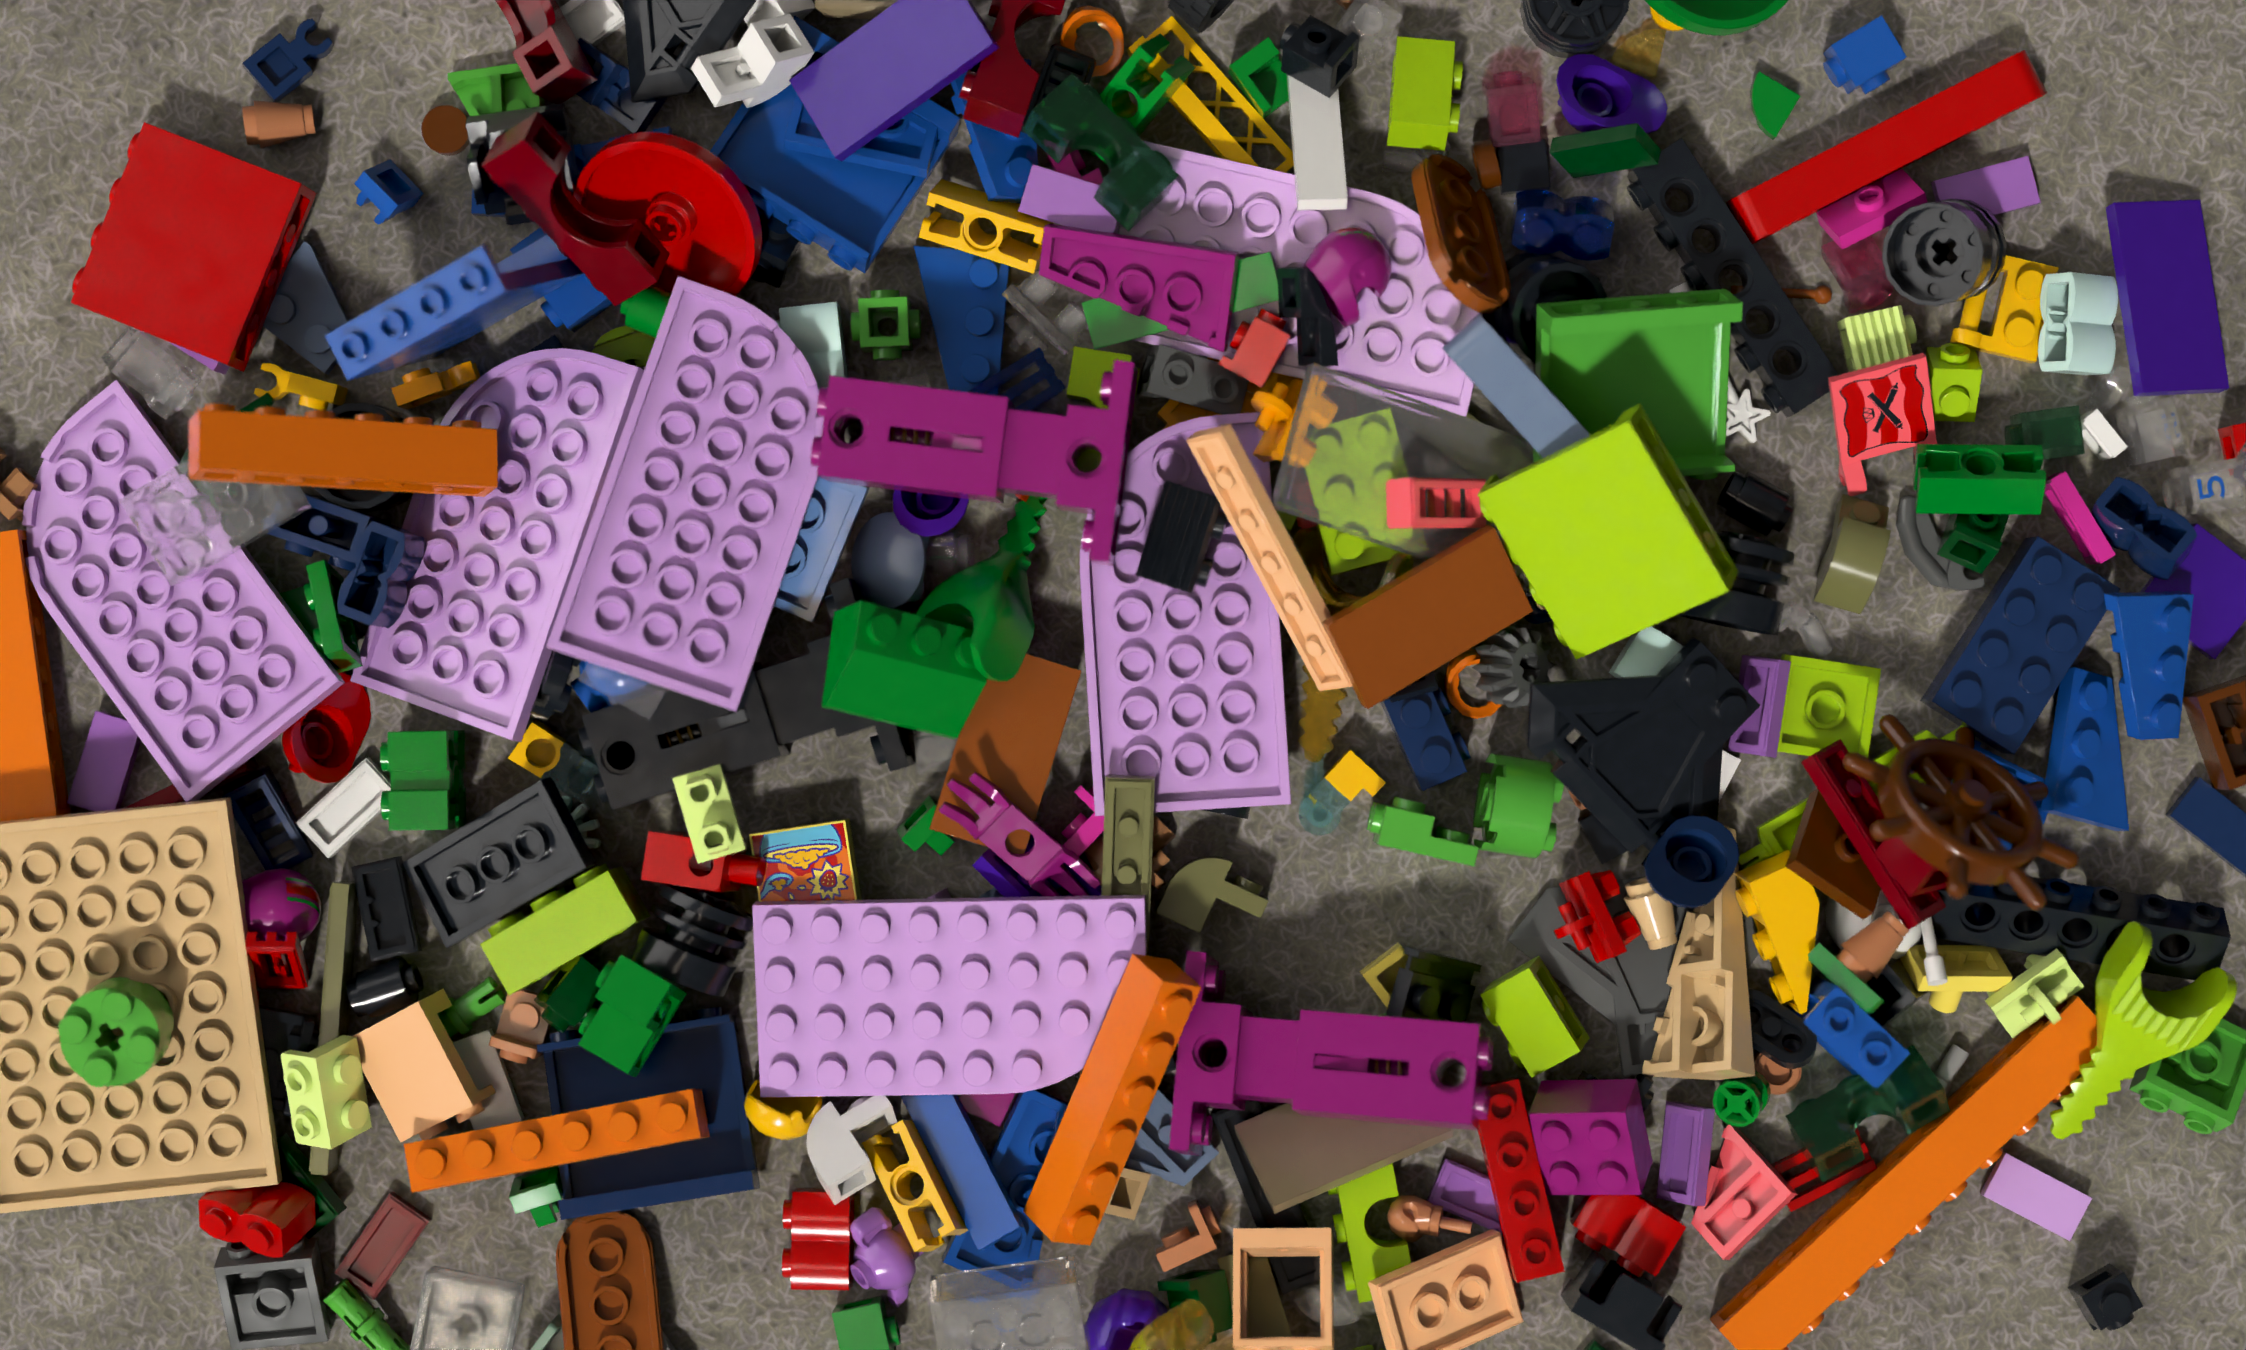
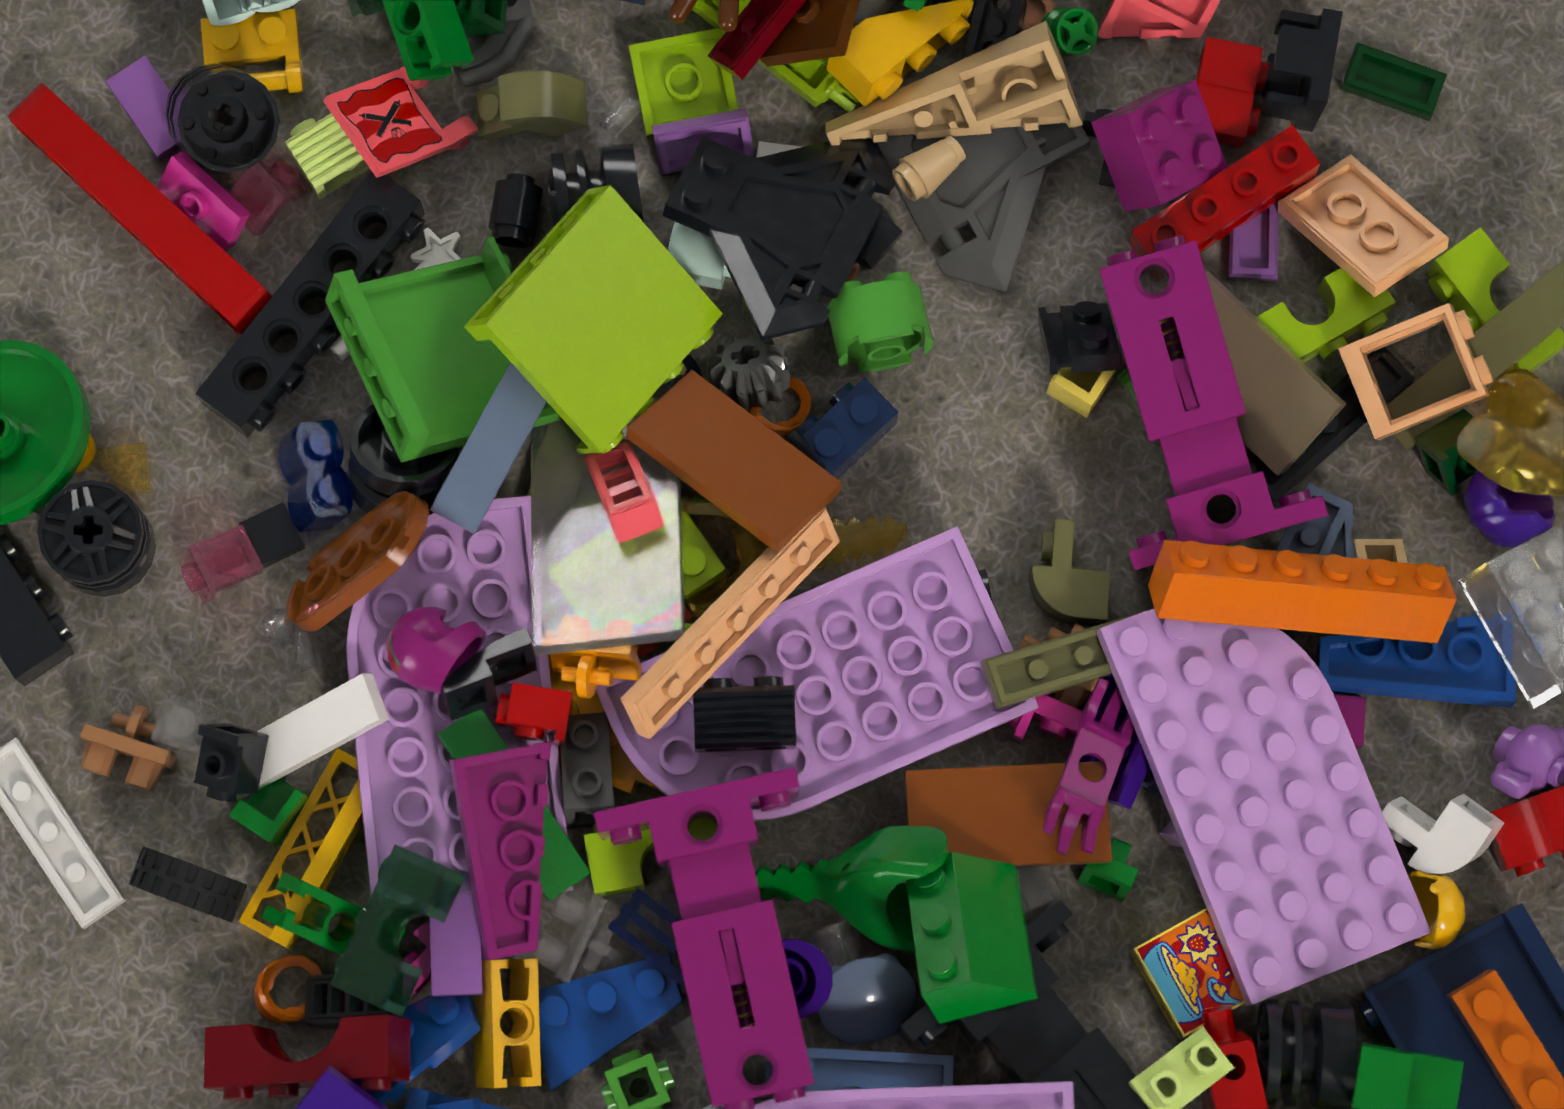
camera: 115 degrees left, 10 degrees down
(896, 1183) = (1459, 773): yellow piece -> none
(964, 1167) = (1419, 712): blue tile -> none
(1184, 1246) = (1407, 482): nougat bracket -> none
(1323, 804) = (928, 497): leg -> none
(1410, 829) = (938, 412): bright green plate -> none
(1414, 1217) = (1293, 282): nougat piece -> none
(1422, 93) = (234, 650): lime brick -> none
(1486, 164) = (281, 568): reddish brown tile -> none
(1534, 1017) = (1068, 240): lime brick -> none
(1589, 919) = (957, 220): red hips -> none
(1605, 150) = (231, 459): dark green tile -> none
(1606, 96) = (179, 475): dark purple piece -> none
(1685, 1153) = (1139, 63): medium lavender tile -> none
(1692, 861) = (871, 141): dark blue piece -> none
(1771, 103) = (134, 328): green tile -> none
(1821, 294) = (298, 222): dark orange hinge -> none
(1863, 57) = (62, 257): blue brick -> none
(1954, 382) = (336, 70): lime bracket -> none

